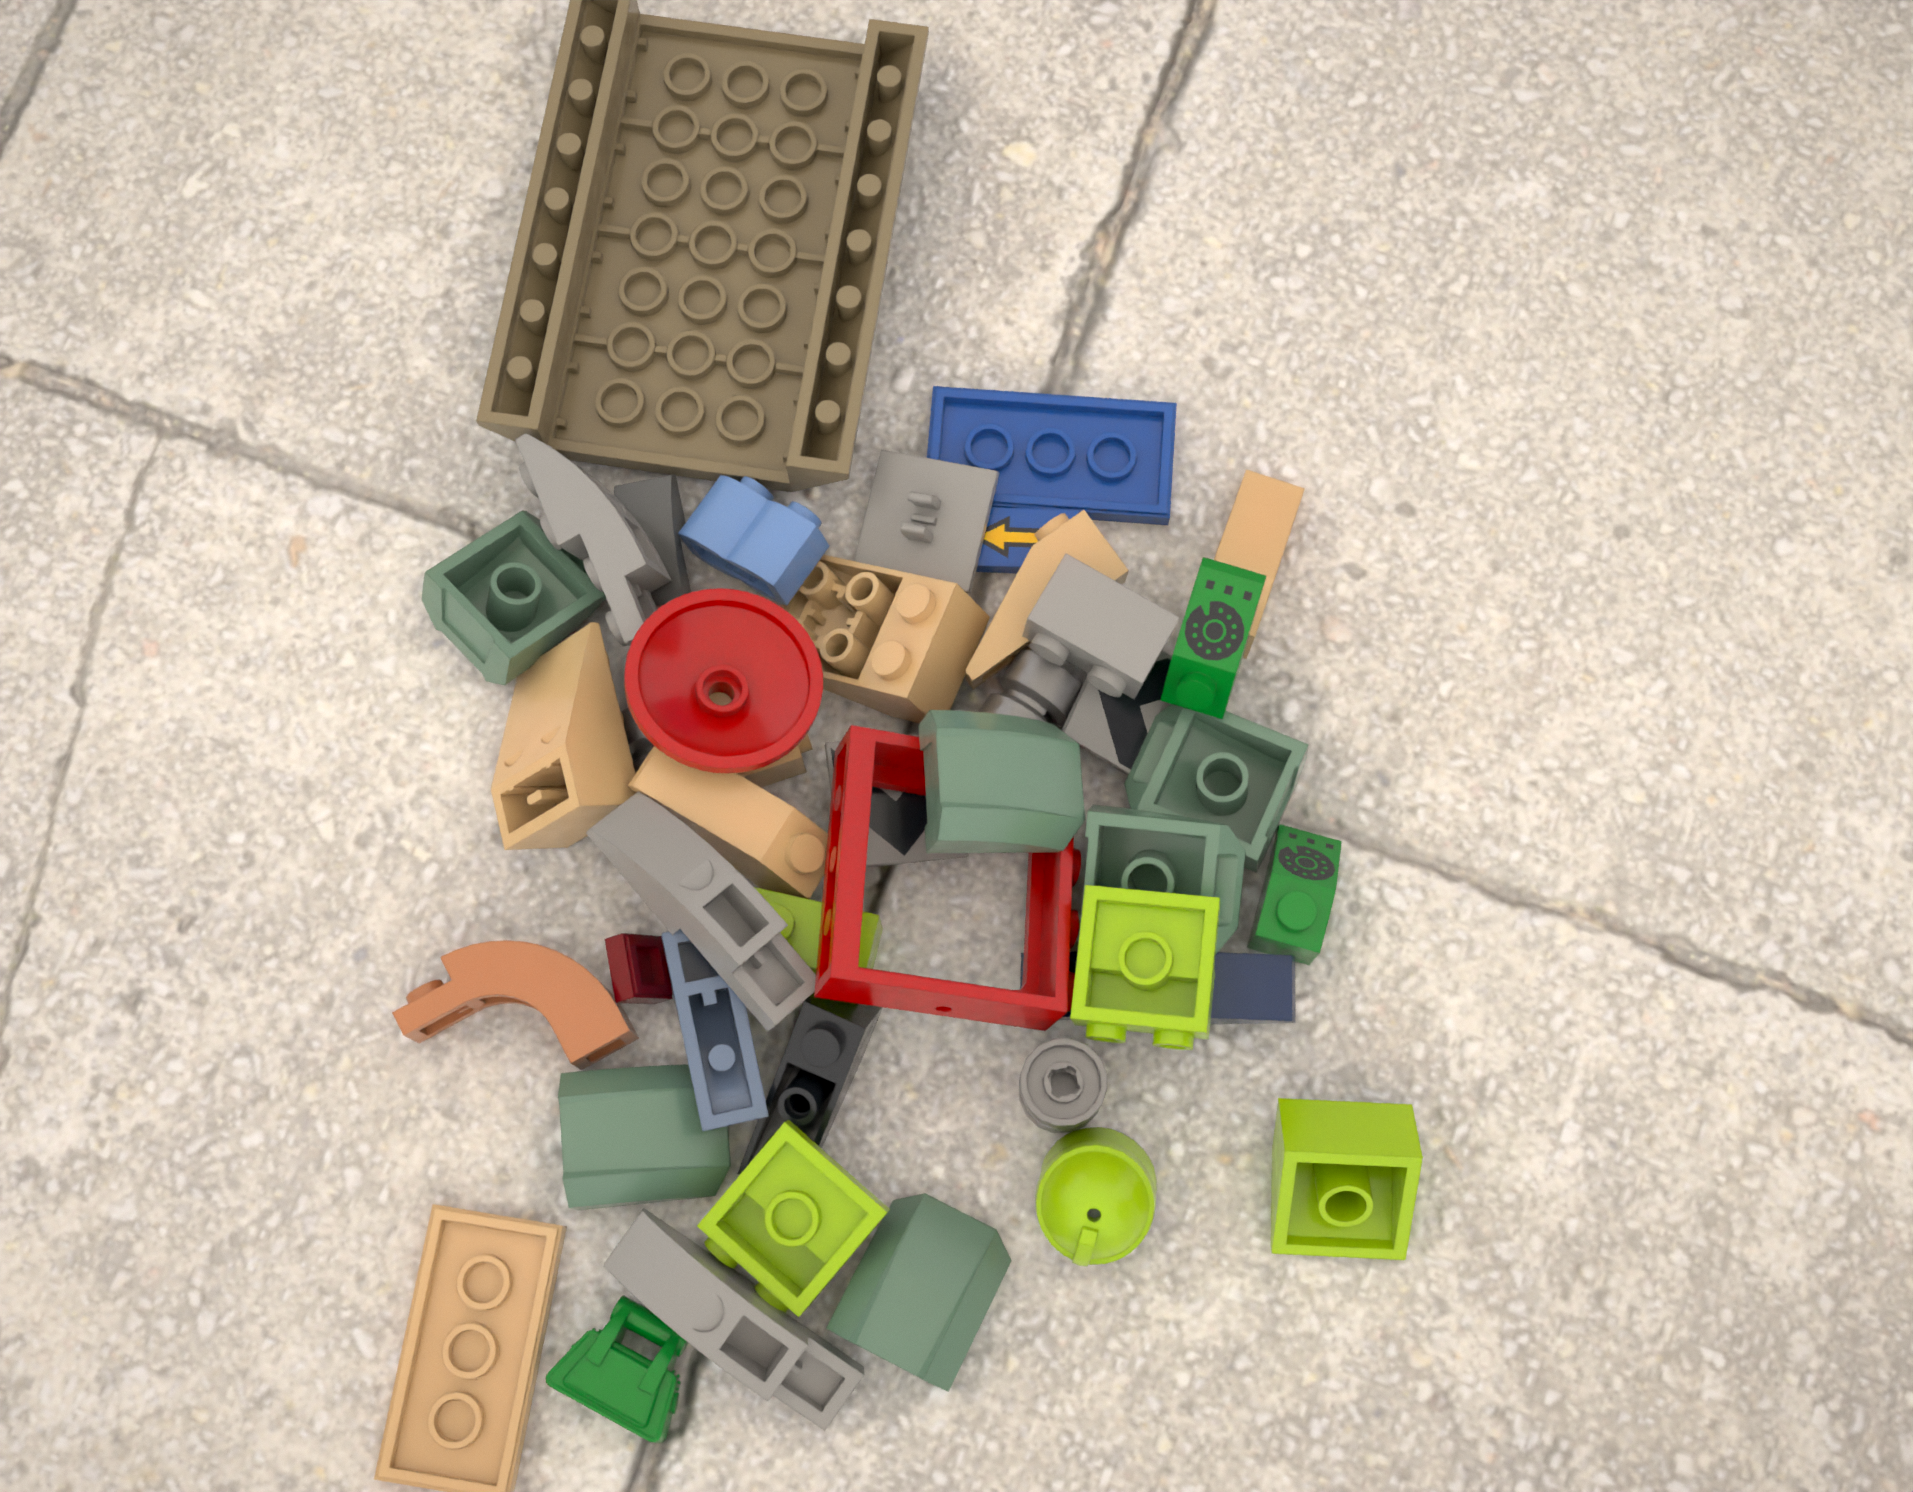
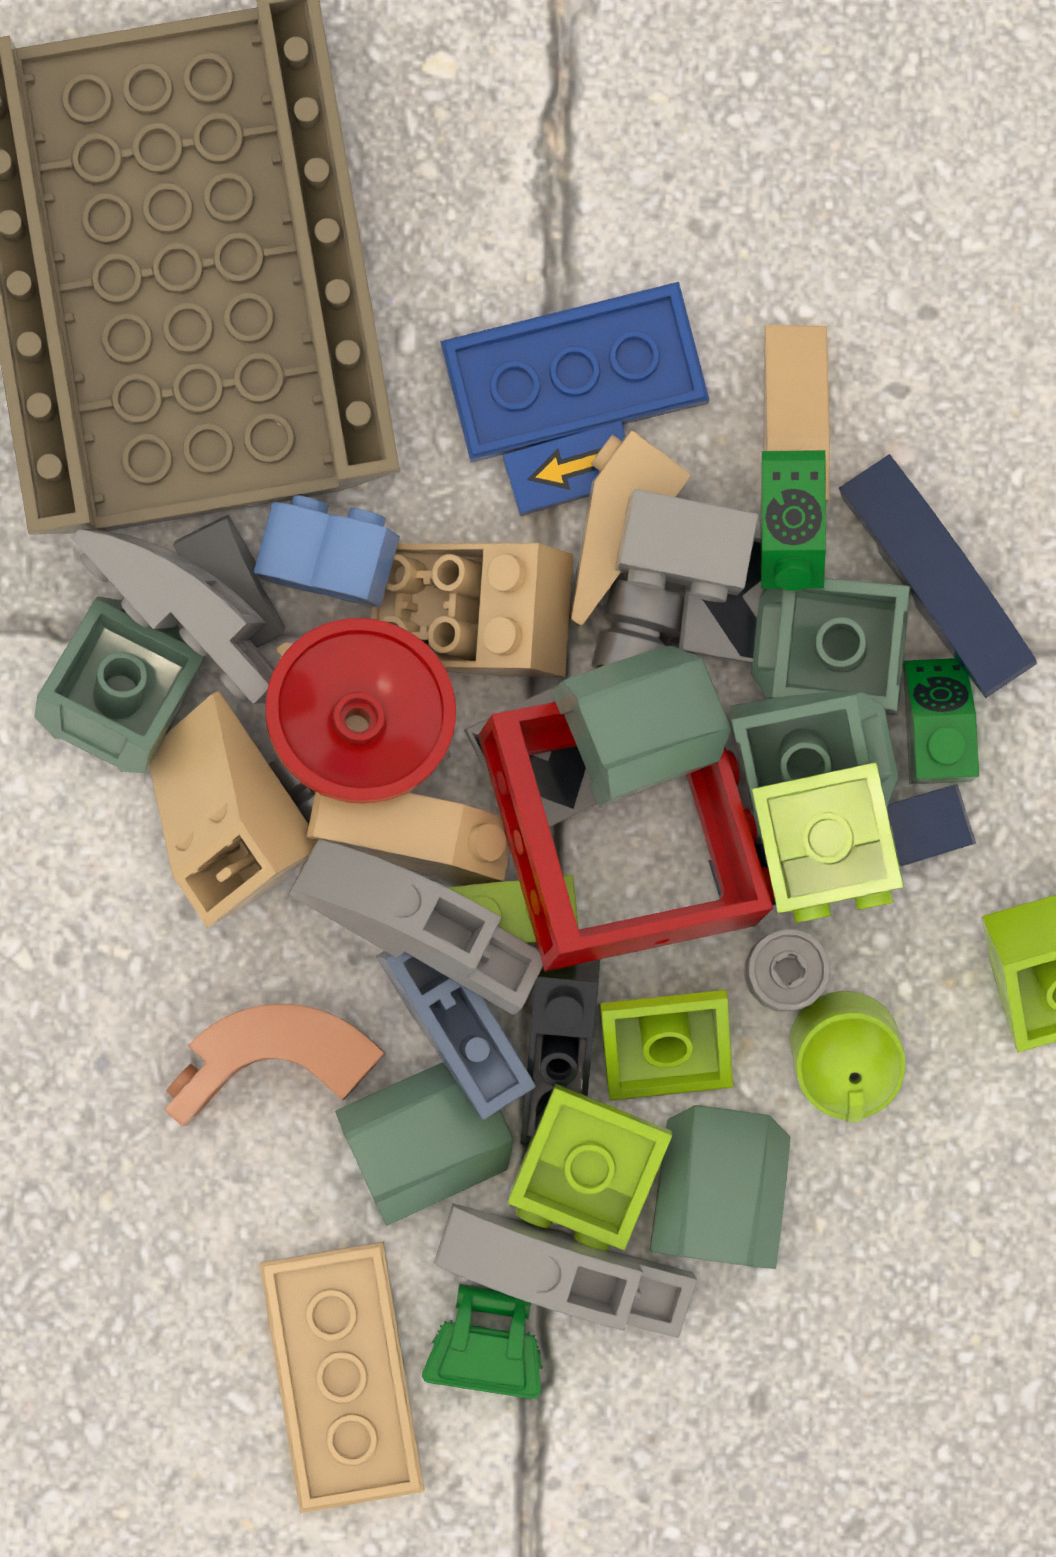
camera: 20 degrees left, 10 degrees up
(638, 969) = (367, 993): dark red tile -> none
(916, 1120) = (667, 1044): none -> lime slope
(927, 517) = (480, 479): light grey piece -> none
(1341, 753) = (939, 576): none -> dark blue slope

